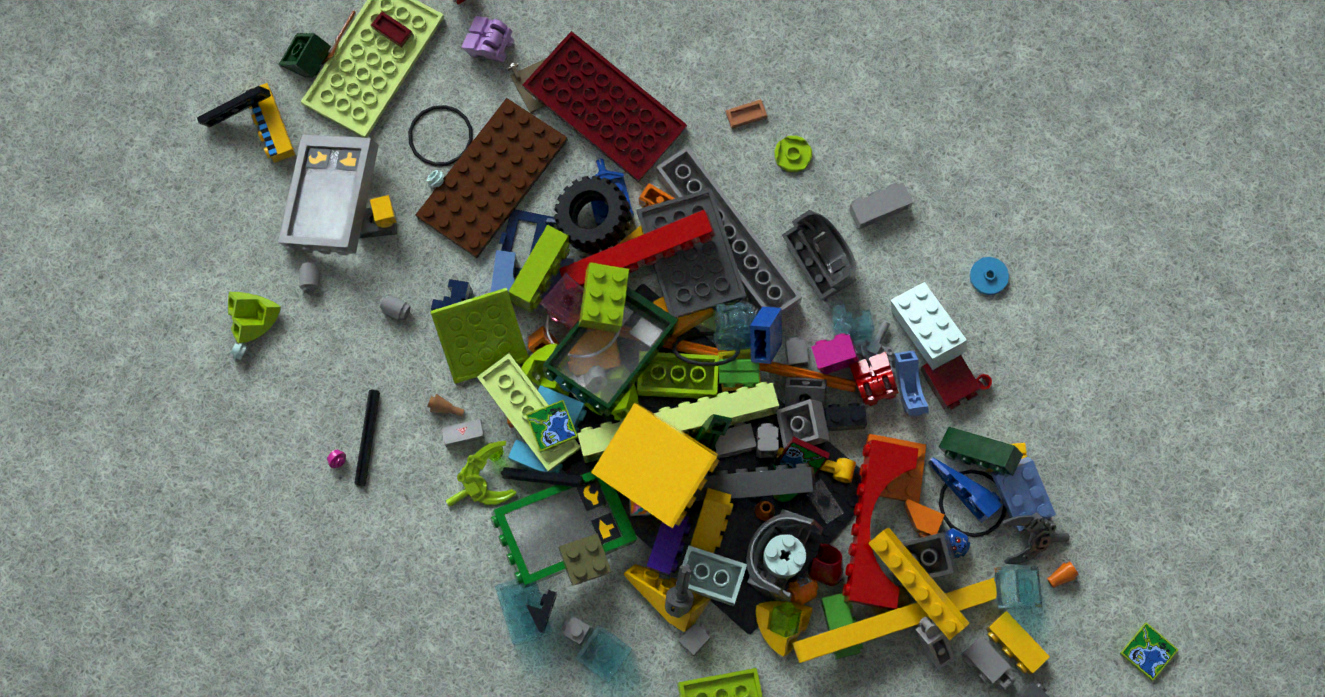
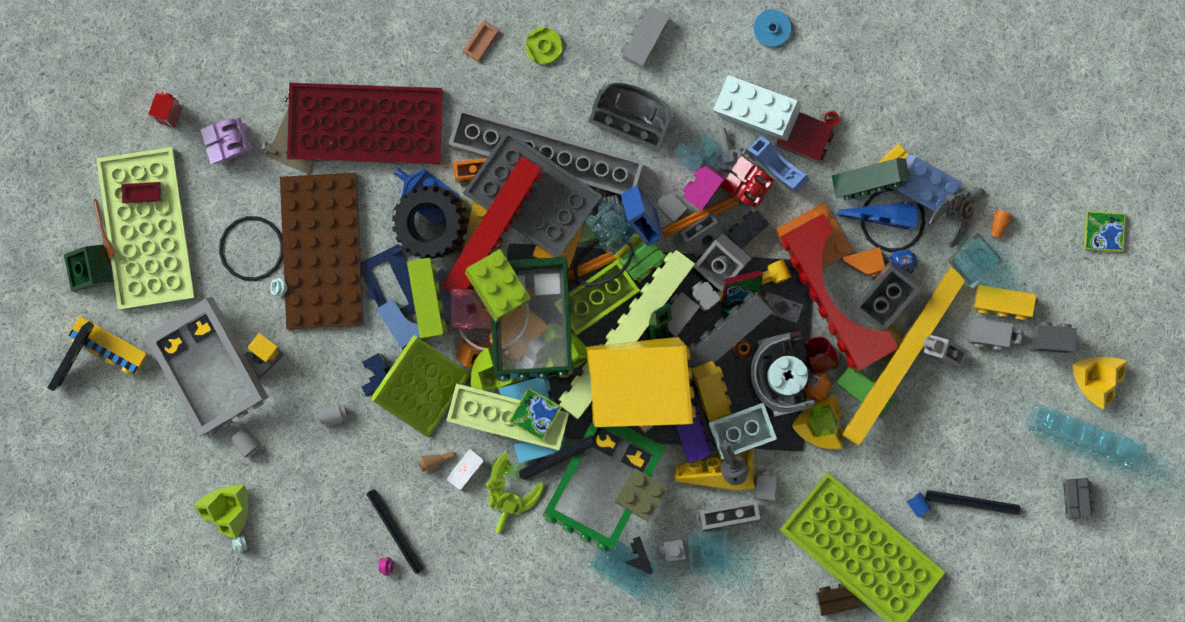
camera: 40 degrees left, 10 degrees up
(645, 639) = (729, 516): none -> light grey brick
(919, 583) = (901, 317): yellow brick -> none

